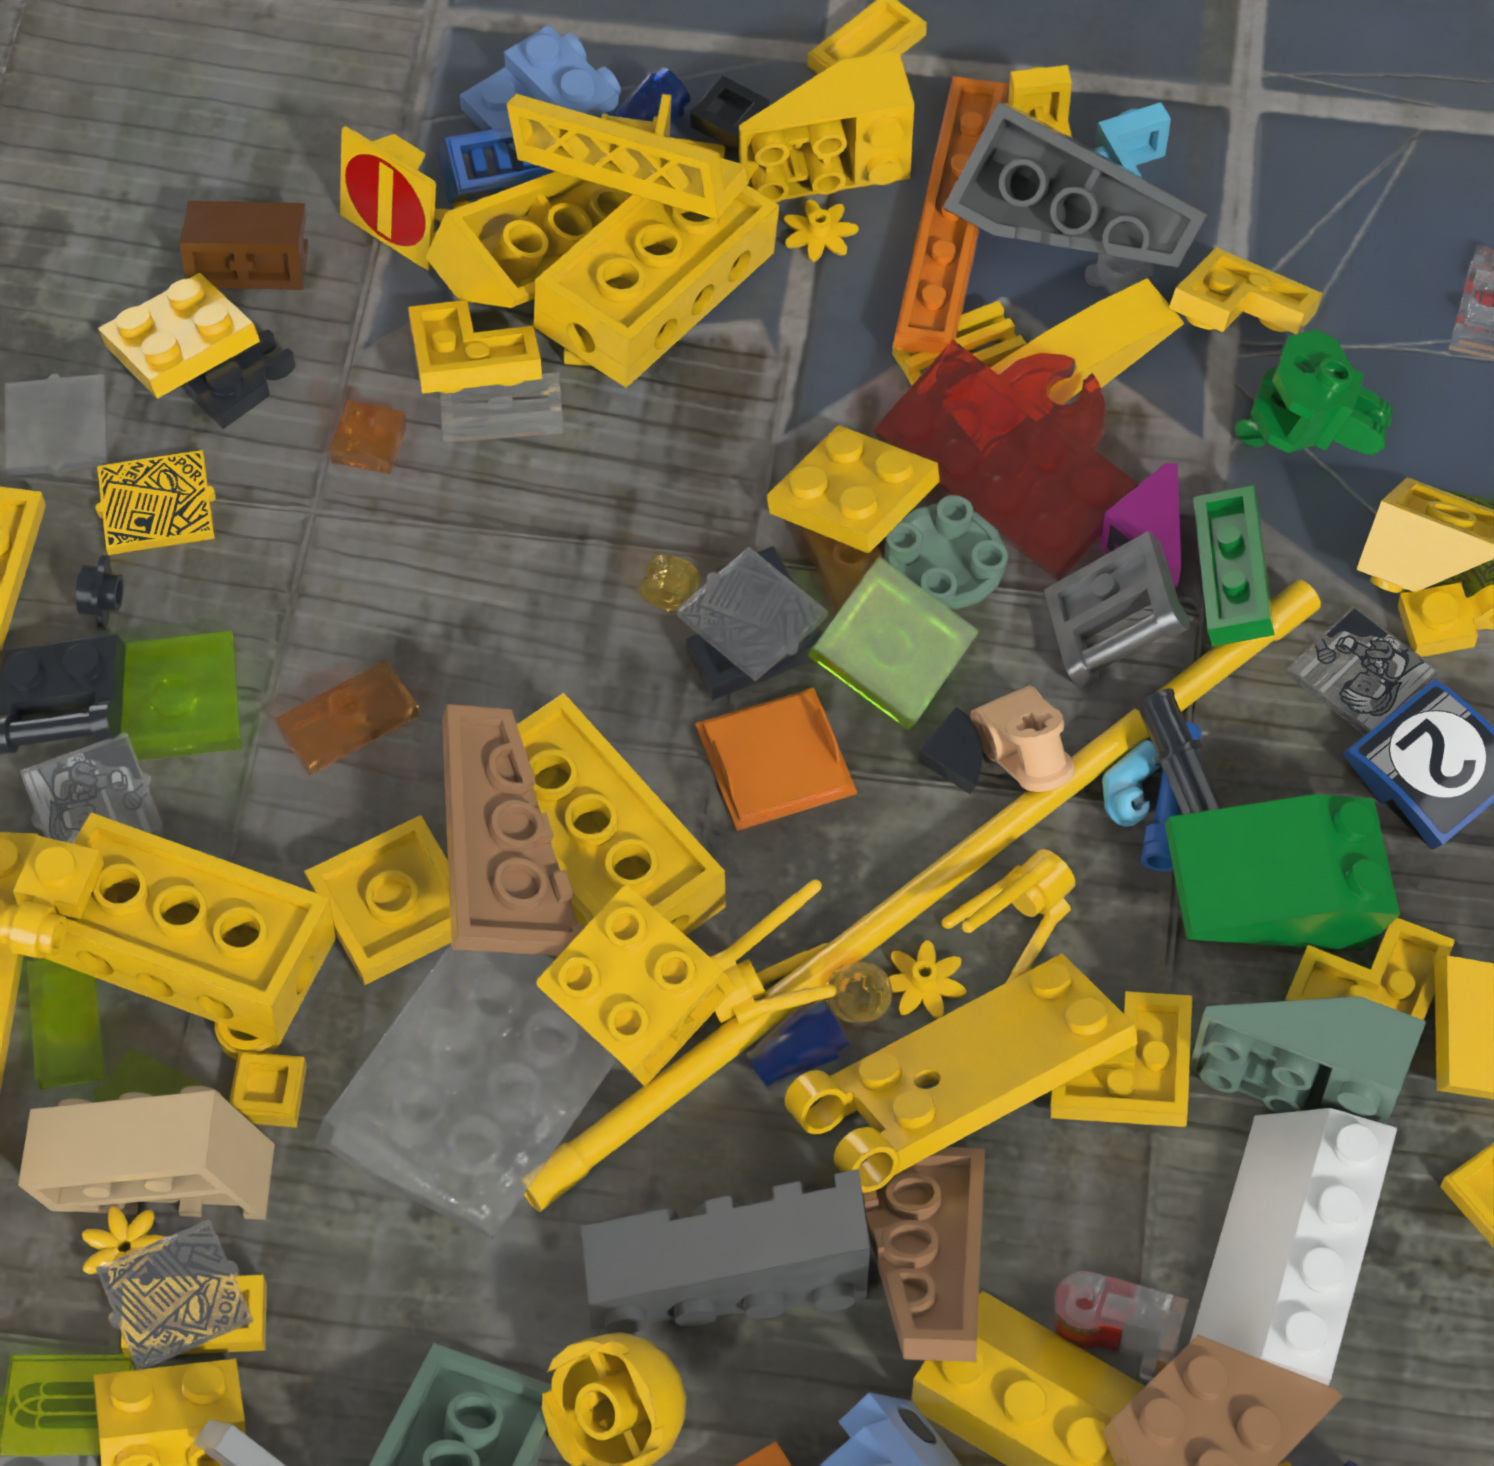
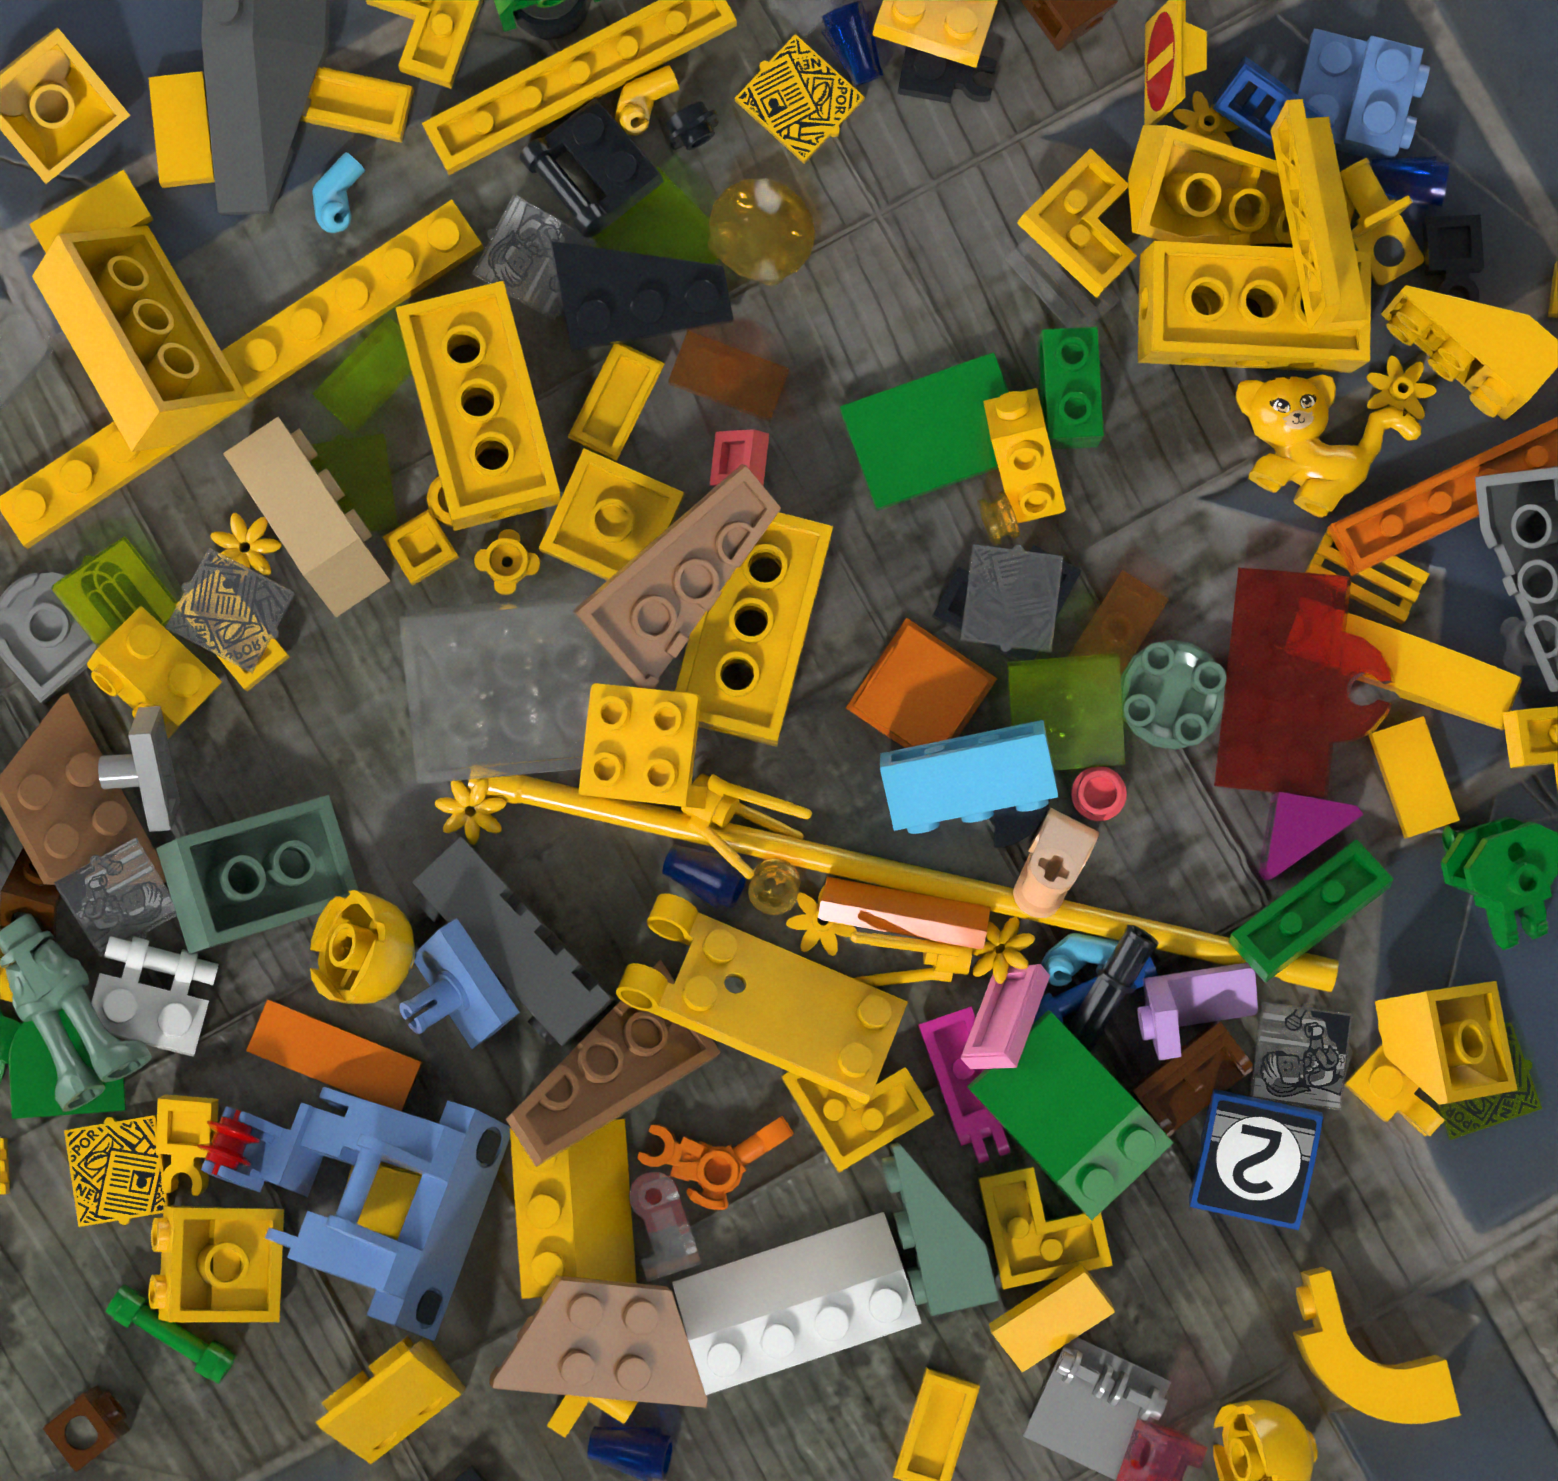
camera: 50 degrees right, 25 degrees up
(30, 617) = (639, 96): none -> yellow arm
(52, 882) = (430, 305): yellow plate -> none
(147, 421) = (851, 39): none -> clear blue cone
(204, 734) = (635, 296): none -> black wing
(243, 598) = (761, 230): none -> clear yellow dish
(283, 820) = (616, 400): none -> yellow tile
(344, 1002) = (491, 559): none -> yellow plate
(368, 437) = (964, 205): clear orange tile -> none
(421, 752) = (739, 448): none -> coral plate
(546, 588) = (925, 431): none -> green tile
(572, 1214) = (470, 817): none -> yellow plant
(603, 451) = (1071, 387): none -> green brick
(630, 510) = (1024, 455): none -> yellow bracket
(733, 1326) = (459, 987): none -> medium blue tile
(777, 310) = (1290, 418): none -> yellow animal
(853, 488) = (1174, 591): yellow plate -> none
(890, 750) = (969, 777): none -> medium azure brick
(975, 889) = (904, 913): none -> orange tile
(988, 670) = (1098, 793): none -> coral plate
(1075, 838) = (1002, 950): none -> yellow plant
(1094, 1239) = (714, 1167): none -> orange piece
(1107, 594) = (1216, 838): flat silver plate -> none
(1143, 866) = (1005, 1019): none -> bright pink tile
(1155, 948) = (971, 1120): none -> dark pink hinge
(1171, 425) = (1414, 777): none -> yellow tile
(1243, 714) = (1194, 999): none -> lavender bracket
(1314, 745) = (1185, 1084): none -> reddish brown hinge

